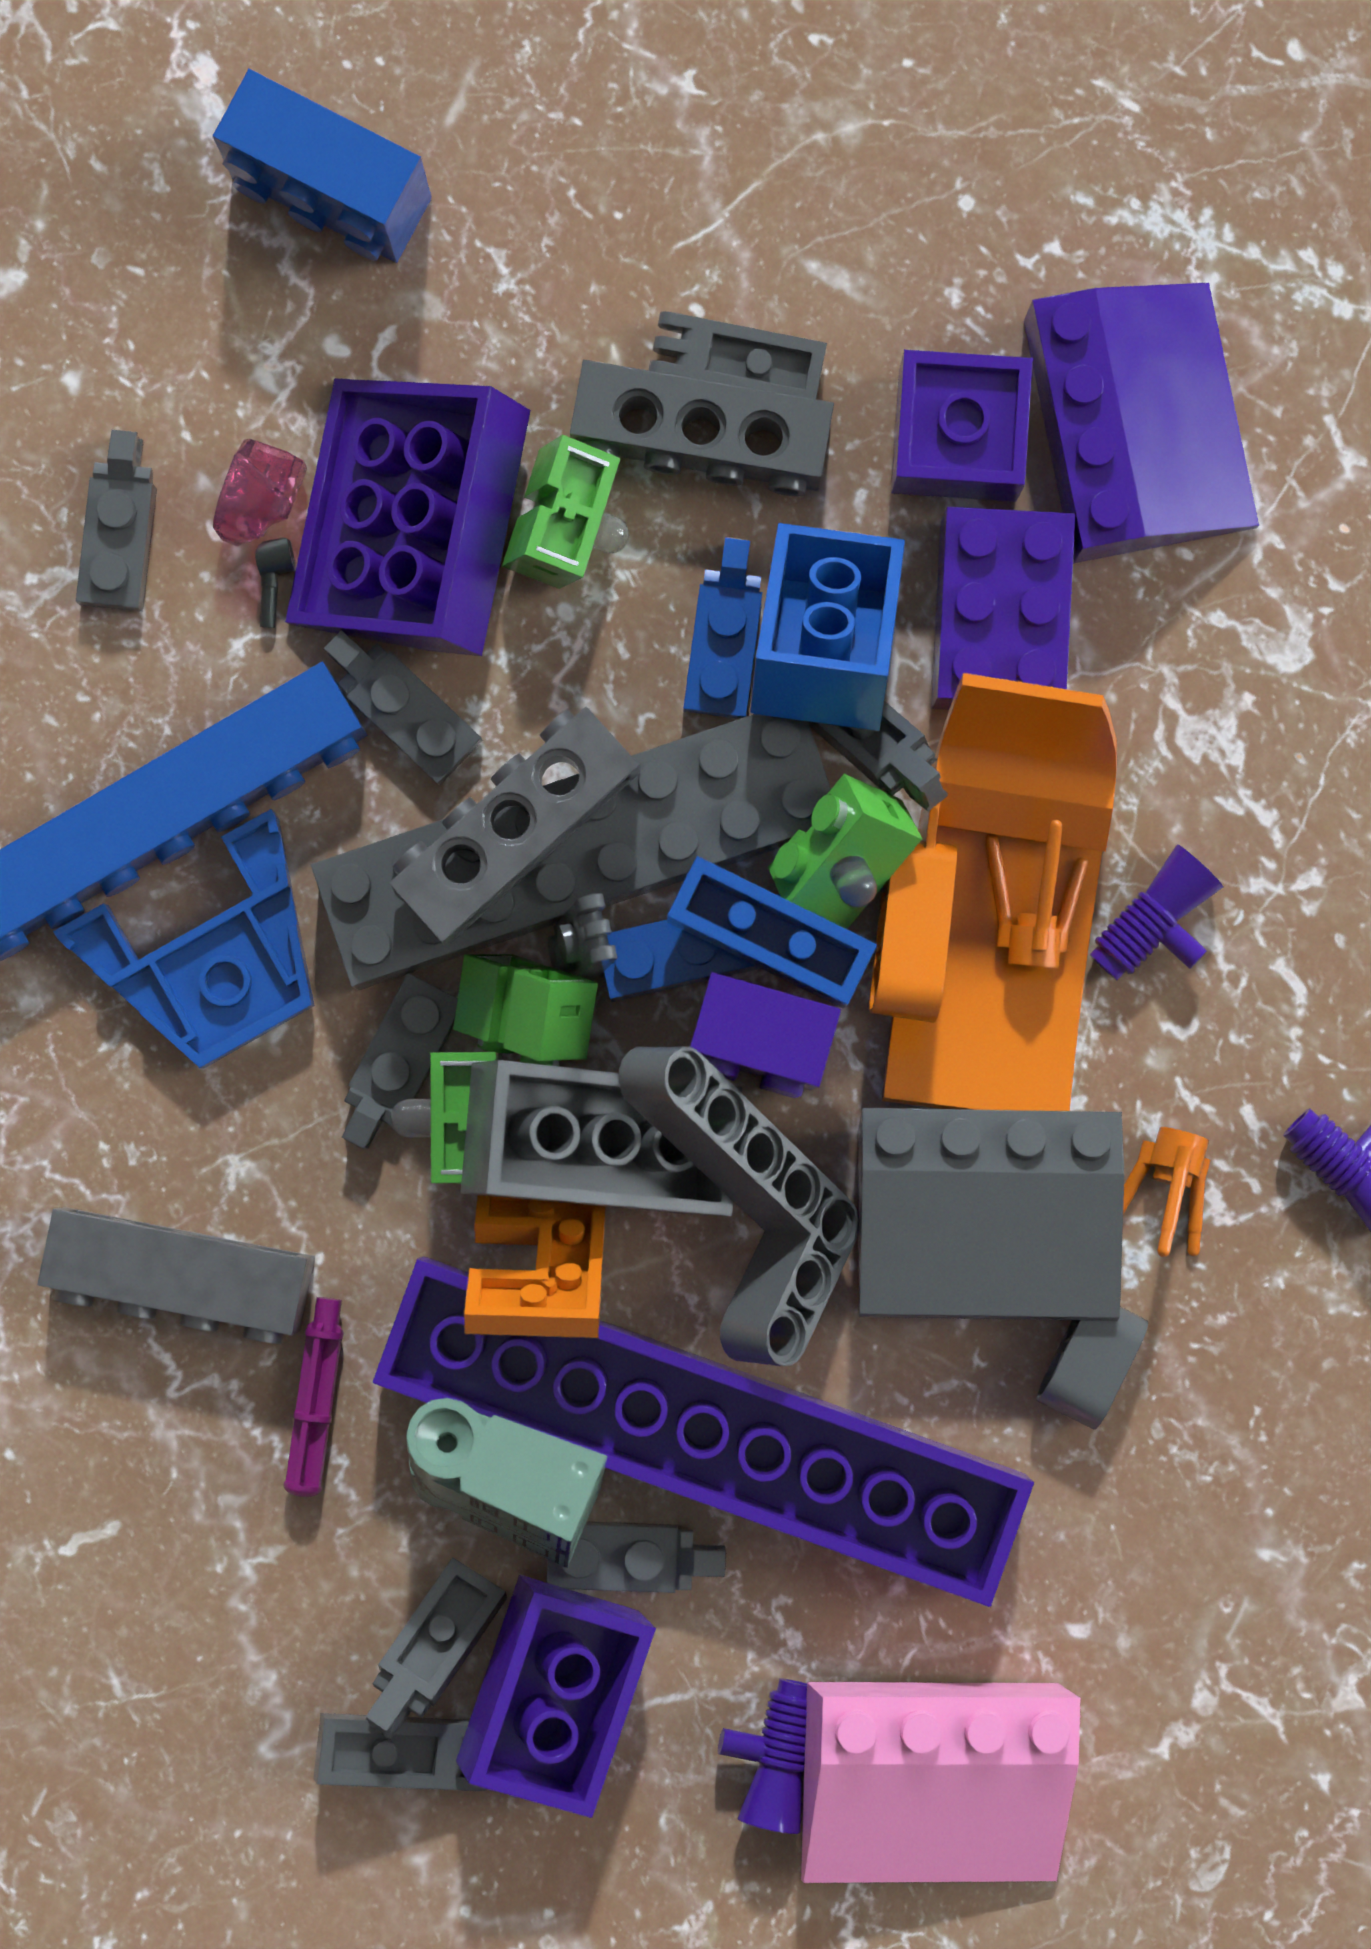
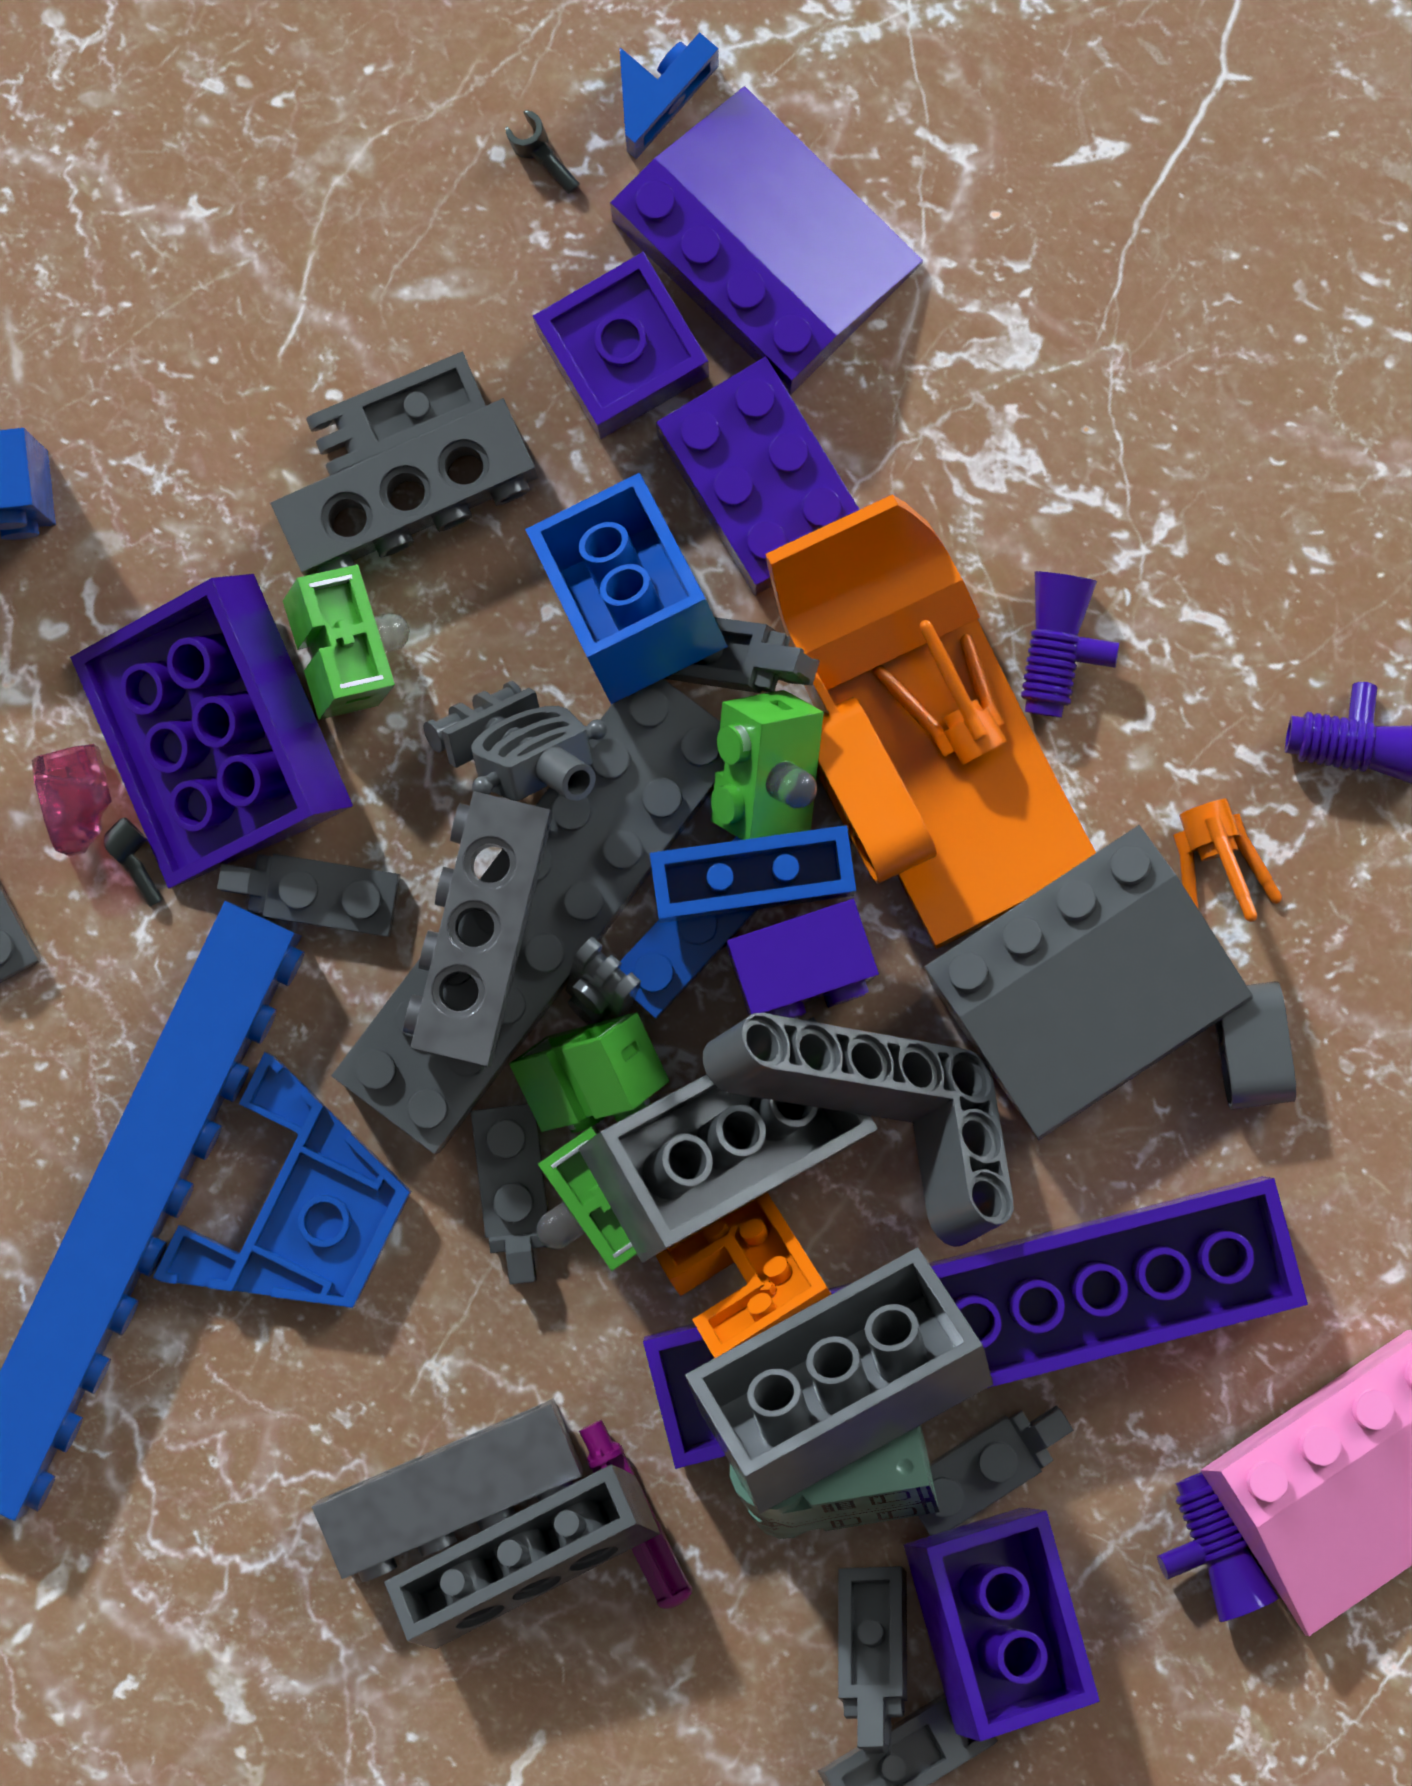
camera: 30 degrees left, 0 degrees up
(196, 1369) = (522, 1557): none -> dark grey brick
(556, 1403) = (840, 1379): none -> dark grey brick
(651, 695) = (518, 744): none -> dark grey torso
(724, 637) = (542, 646): blue hinge -> none
(1002, 218) = (537, 148): none -> pearl dark grey hand
(1127, 245) = (654, 102): none -> blue slope

